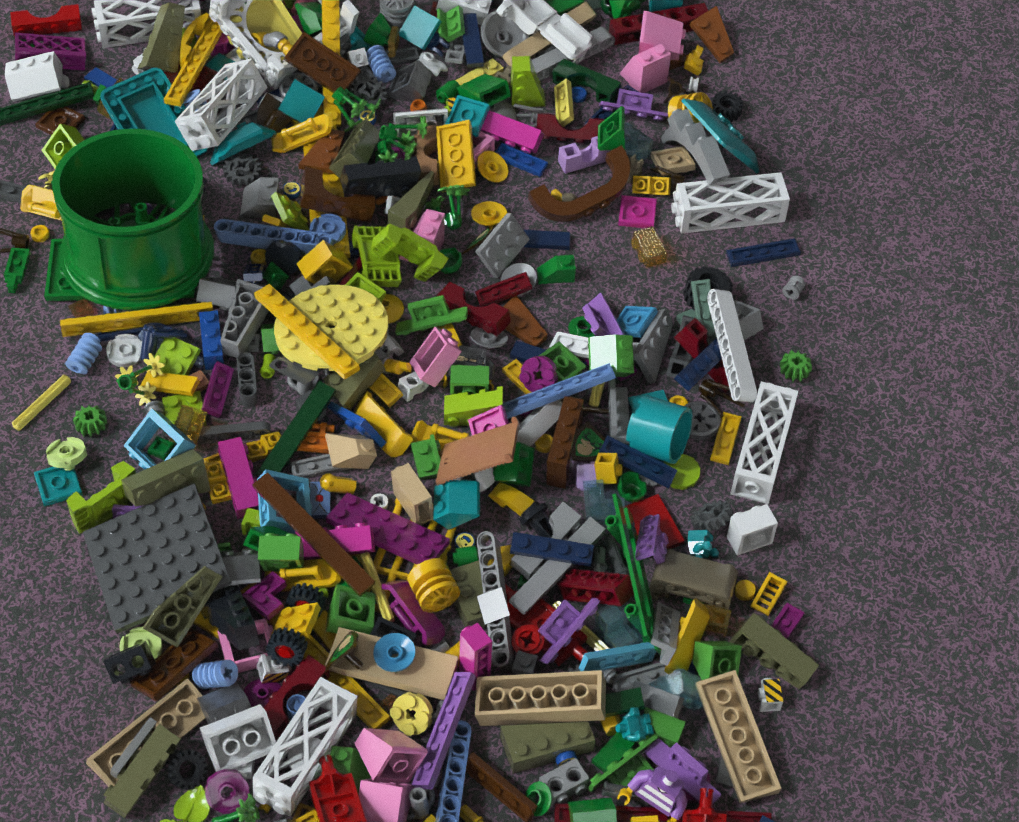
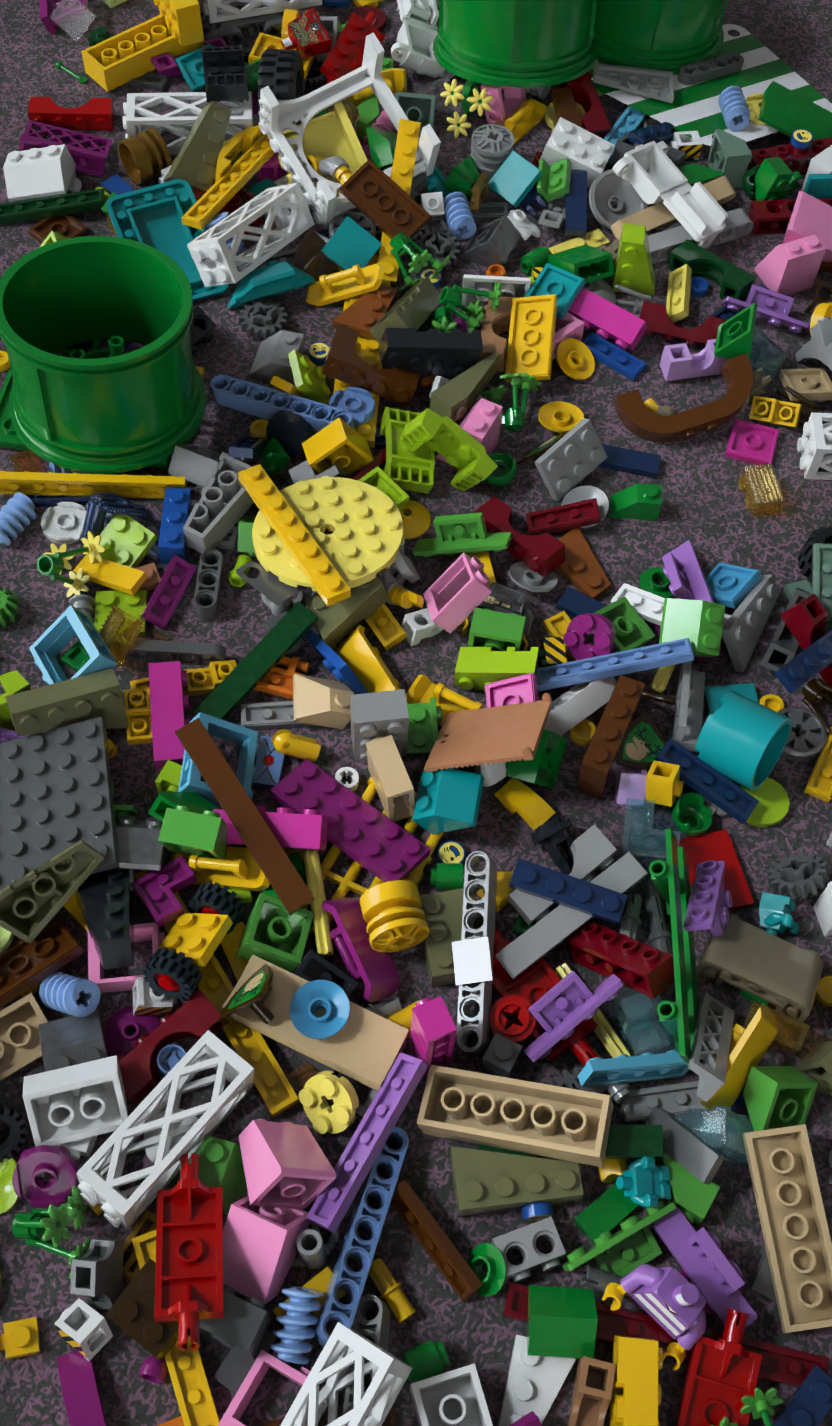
camera: 10 degrees right, 5 degrees up
(117, 50) = (144, 155): none -> pearl gold wheel
(393, 452) = (378, 716): none -> light grey brick
(512, 389) = (551, 651): none -> brick

